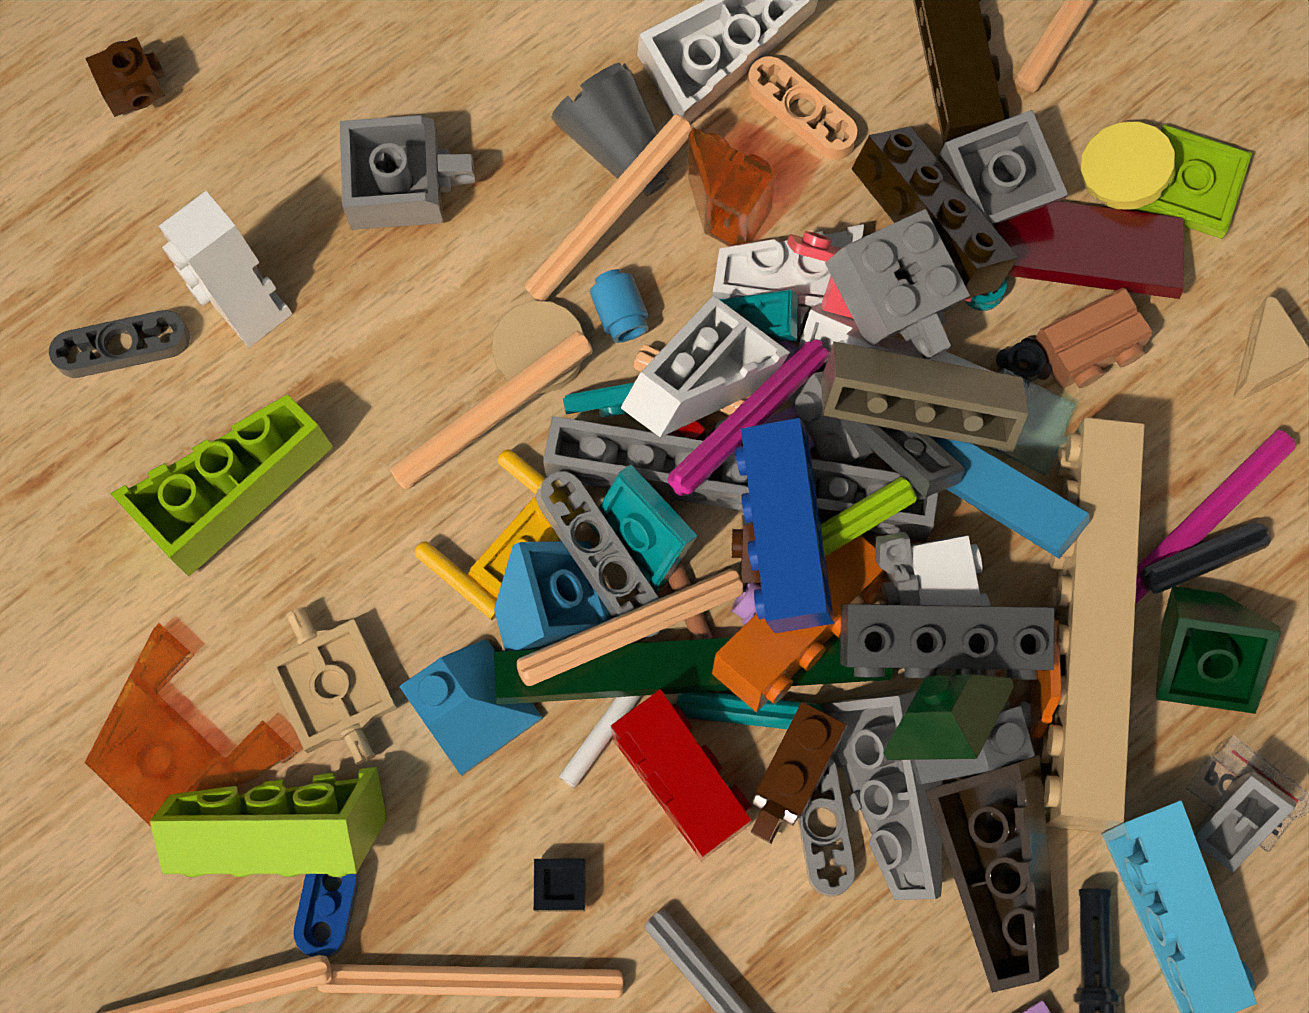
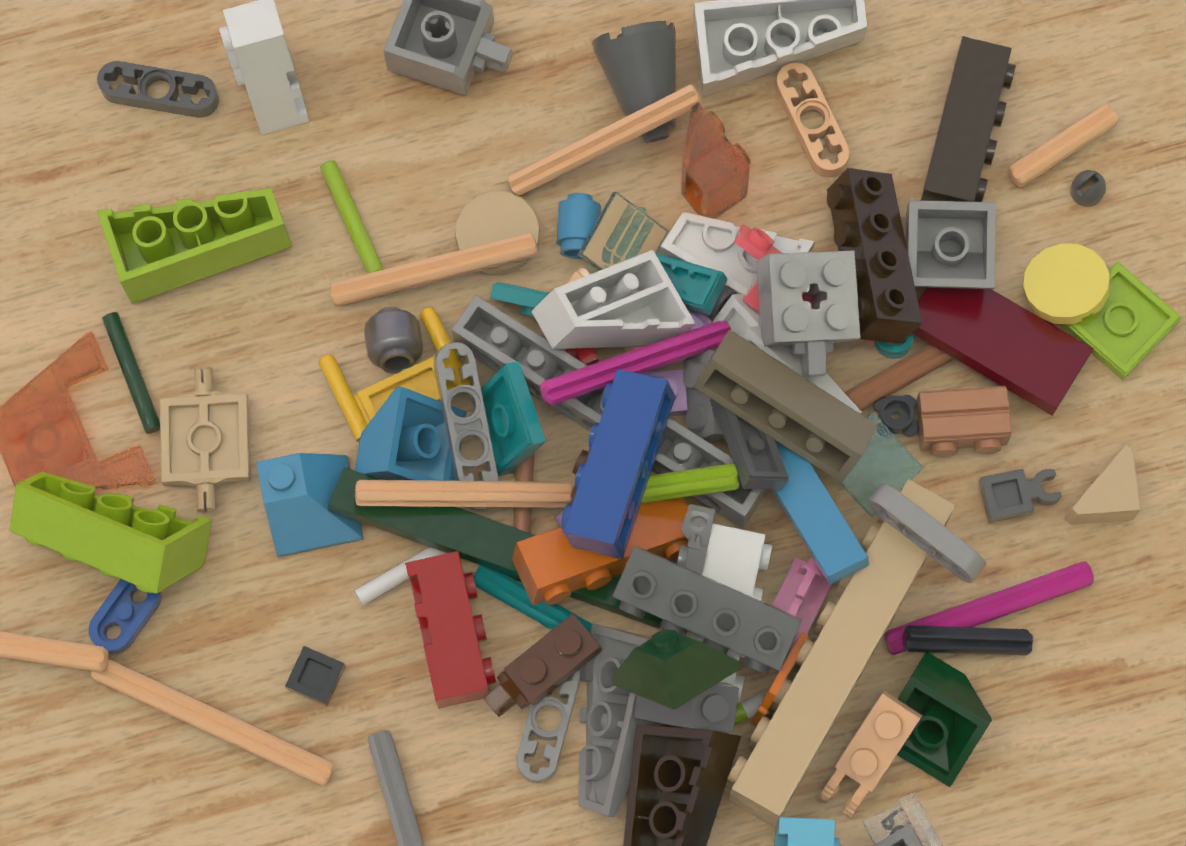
camera: 25 degrees right, 0 degrees up
(220, 648) = (131, 372): none -> dark green bar
(380, 392) = (351, 217): none -> lime bar
(482, 498) = (393, 339): none -> flat silver head
(668, 297) = (621, 234): none -> piece
(1008, 322) = (897, 376): none -> nougat axle
(1016, 576) = (802, 593): none -> bright pink hinge
(1109, 72) = (1093, 194): none -> dark grey hinge
(1135, 463) = (926, 533): none -> light grey beam
(1168, 711) = (872, 749): none -> light nougat hinge
(1177, 393) = (1011, 496): none -> dark grey plate

